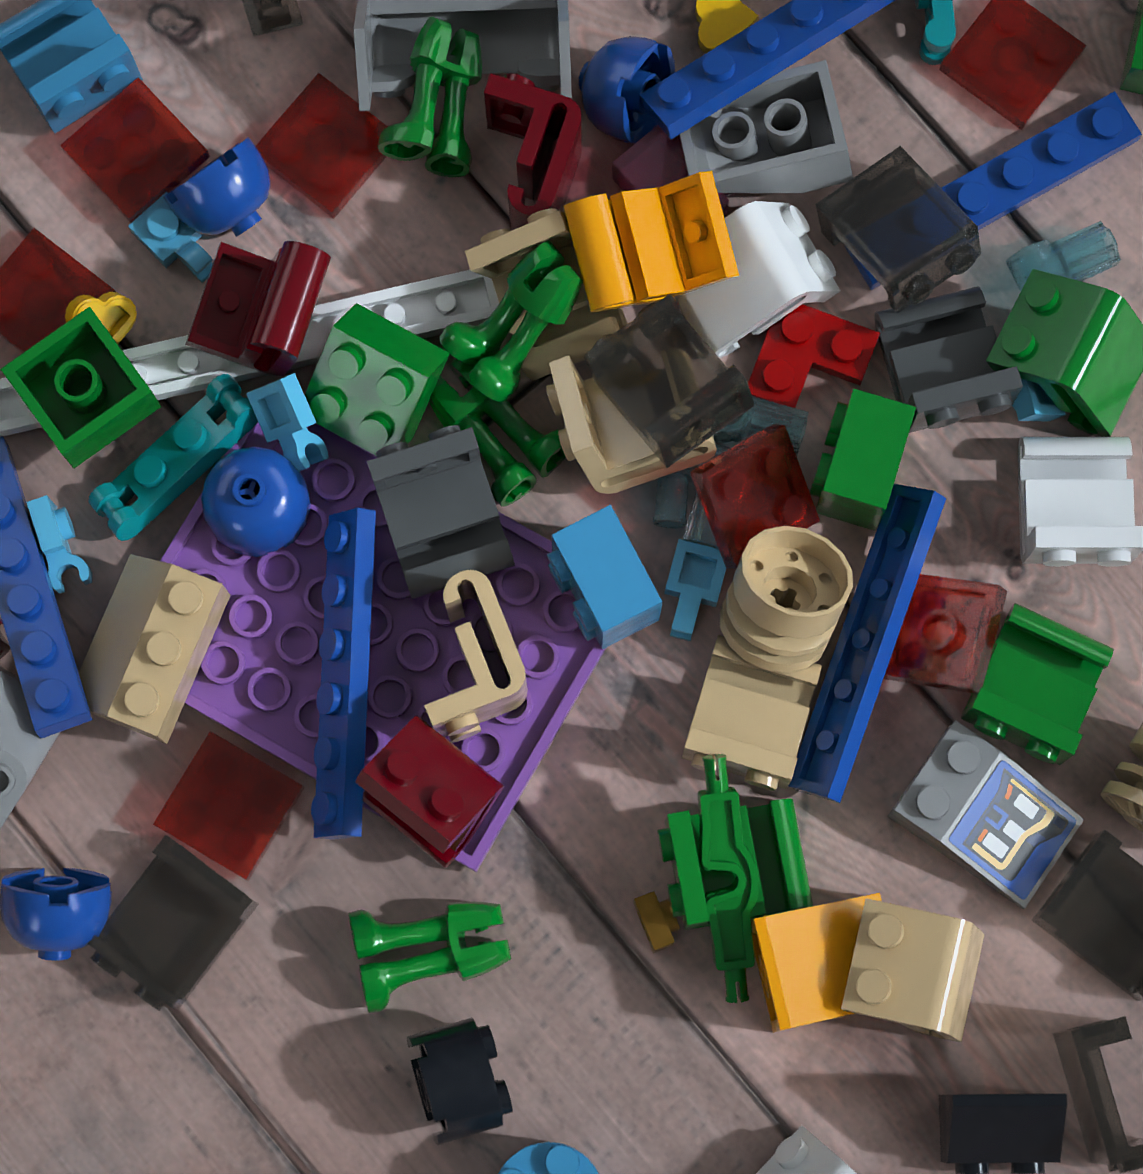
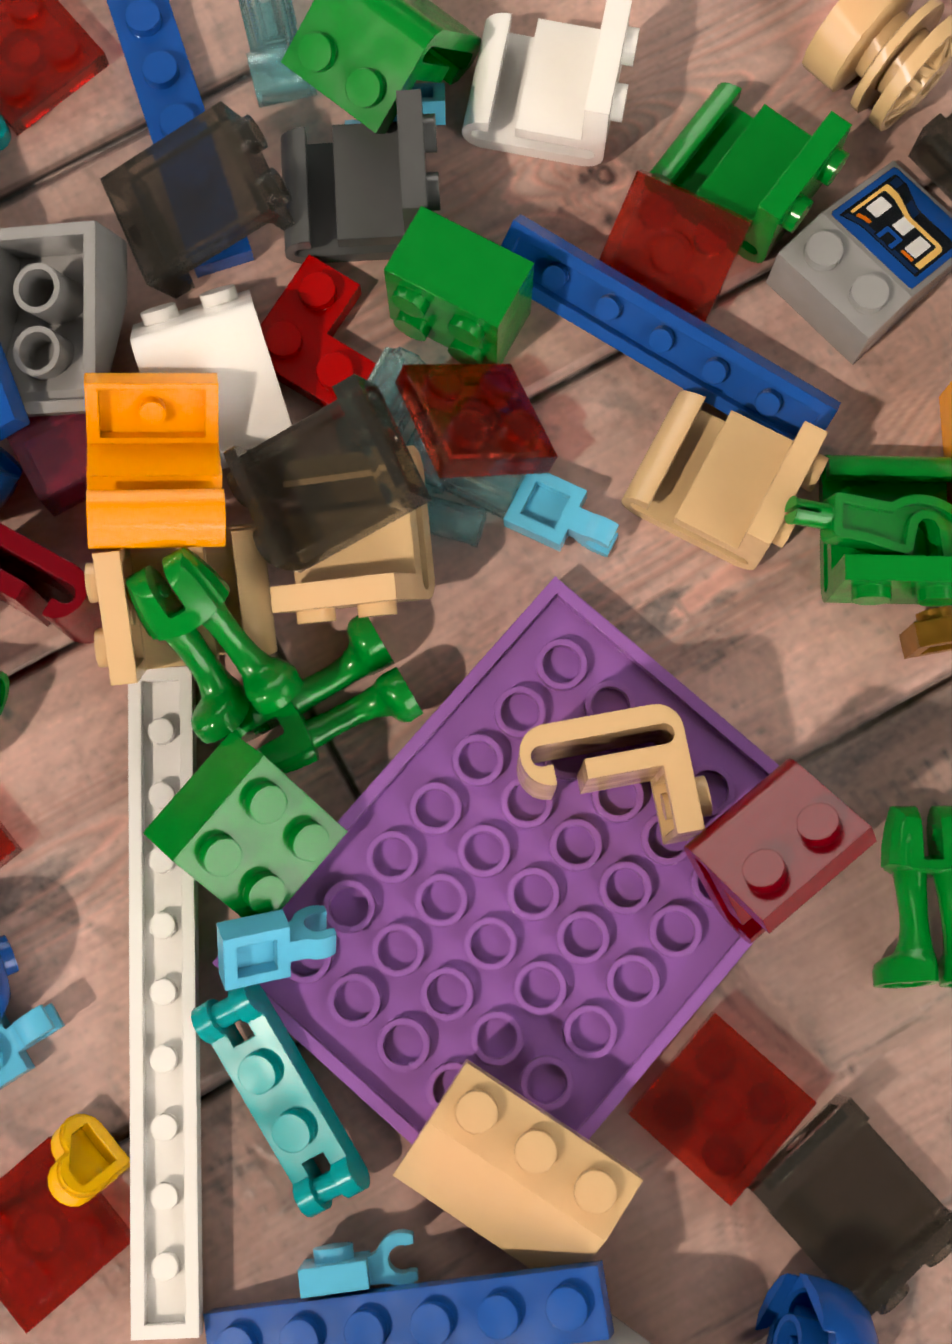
camera: 80 degrees left, 0 degrees up
(81, 387) = (171, 1203): green brick -> none
(258, 306) = (120, 950): dark red piece -> none
(268, 519) = (390, 990): blue cylinder -> none
(344, 674) = (598, 934): blue plate -> none
(440, 509) = (425, 780): dark grey piece -> none
(604, 577) = (549, 598): dark azure brick -> none
(785, 599) = (606, 404): tan wheel -> none

